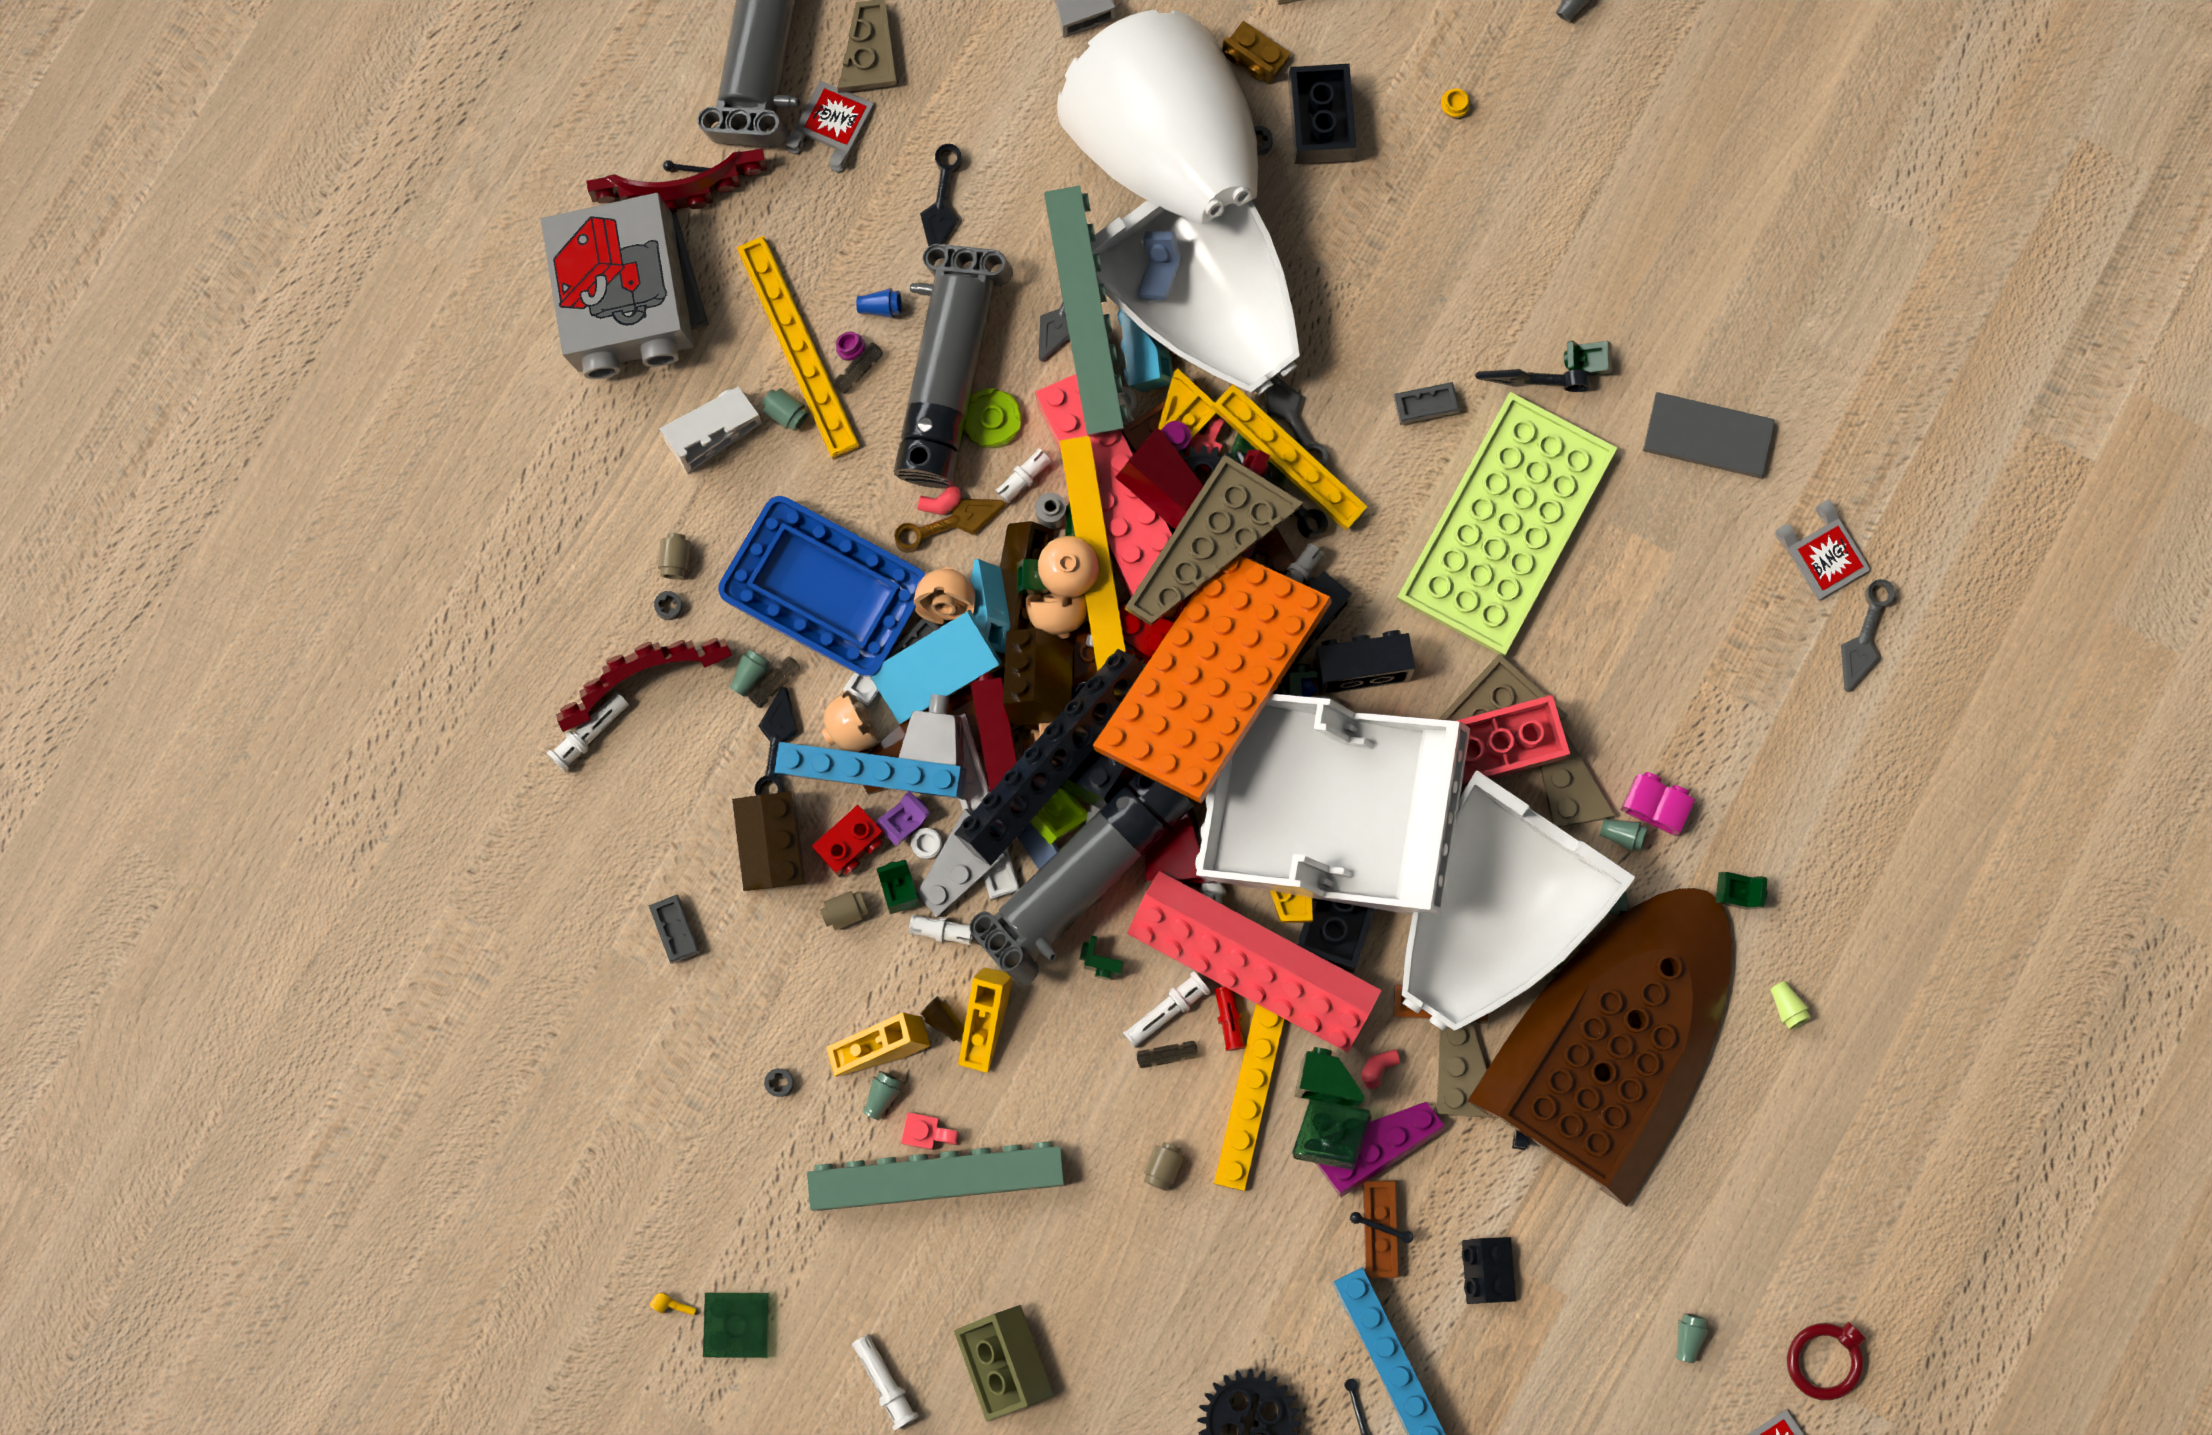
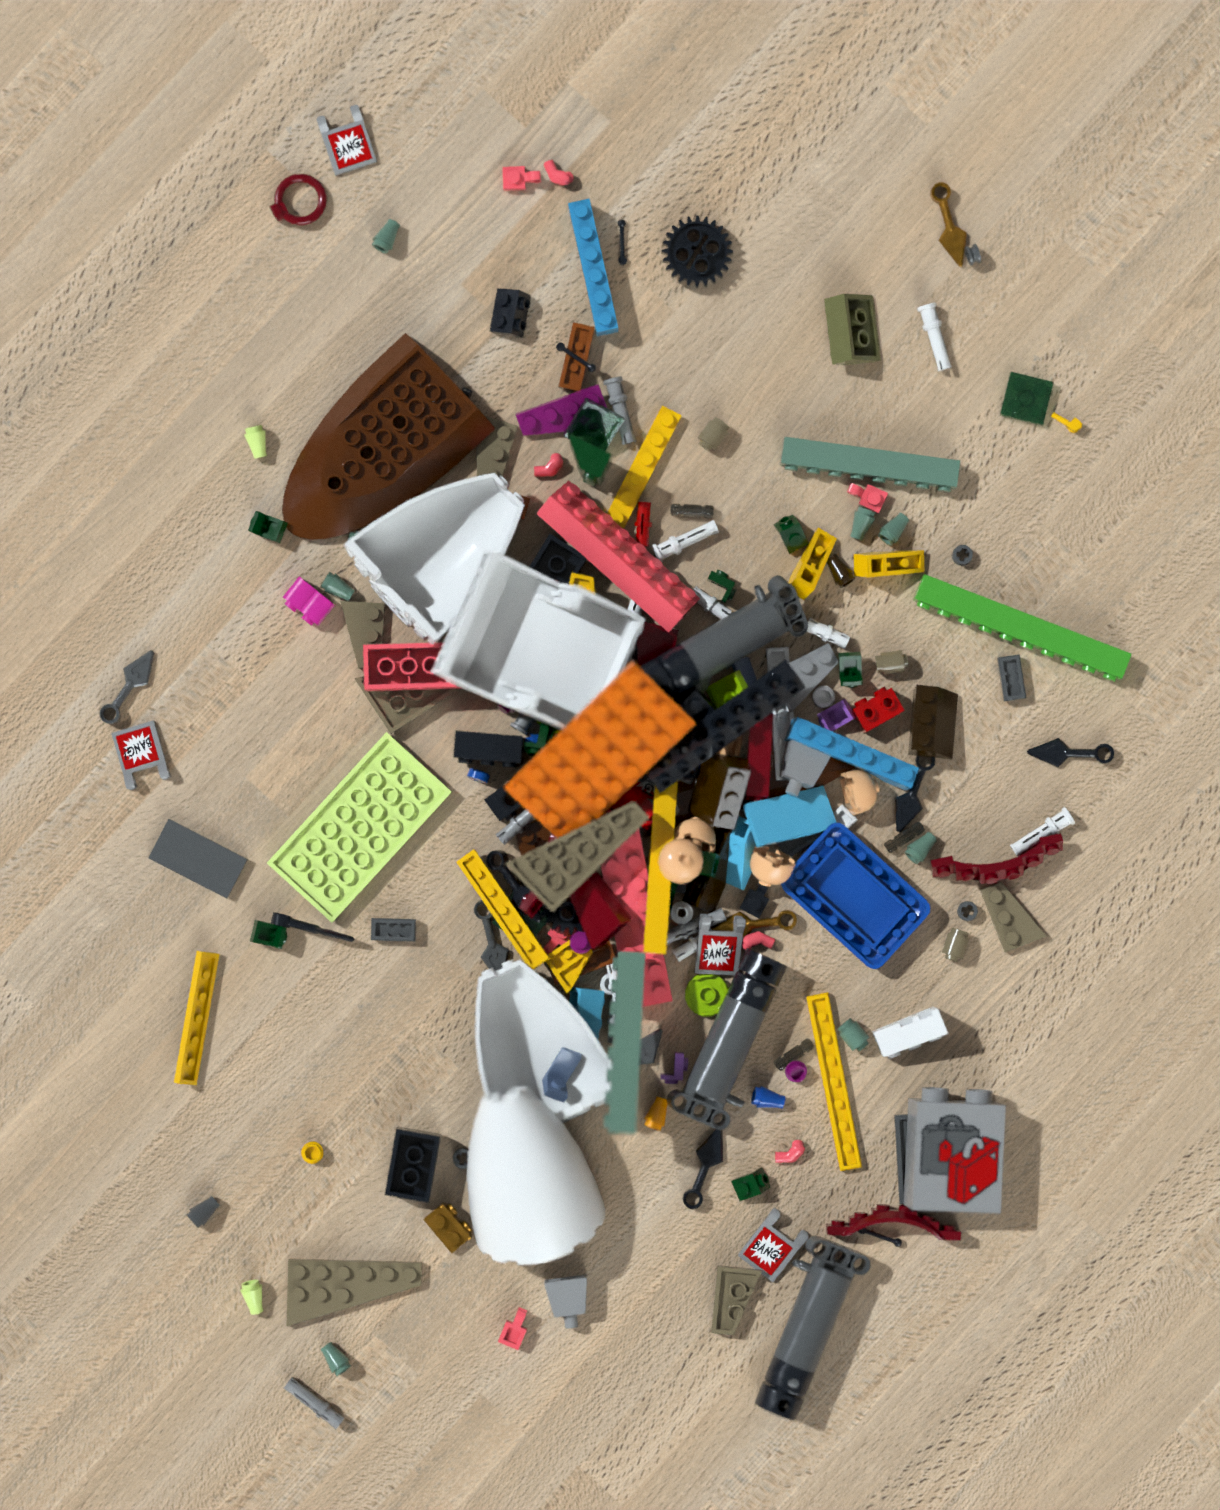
camera: 165 degrees left, 10 degrees up
(591, 844) = (1056, 752): none -> black piece
(608, 608) = (1009, 918): none -> dark tan wing
(674, 1000) = (1021, 627): none -> bright green brick
(831, 241) = (792, 1155): none -> coral arm
(875, 191) = (751, 1184): none -> dark green bracket
(928, 1093) = (862, 521): none -> sand green cone
(955, 550) = (755, 901): none -> black plate
(989, 475) = (718, 950): none -> flag
(1004, 318) = (680, 1065): none -> medium lavender bracket
(1020, 249) = (657, 1114): none -> light orange cone
(1022, 1055) = (791, 533): none -> dark green bracket
(1027, 500) = (687, 929): none -> light grey pin
(1108, 931) = (711, 604): none -> white pin
(1307, 1183) = (617, 400): none -> light grey pin
(1366, 627) = (478, 776): none -> blue tile
(1652, 232) = (196, 1018): none -> yellow plate

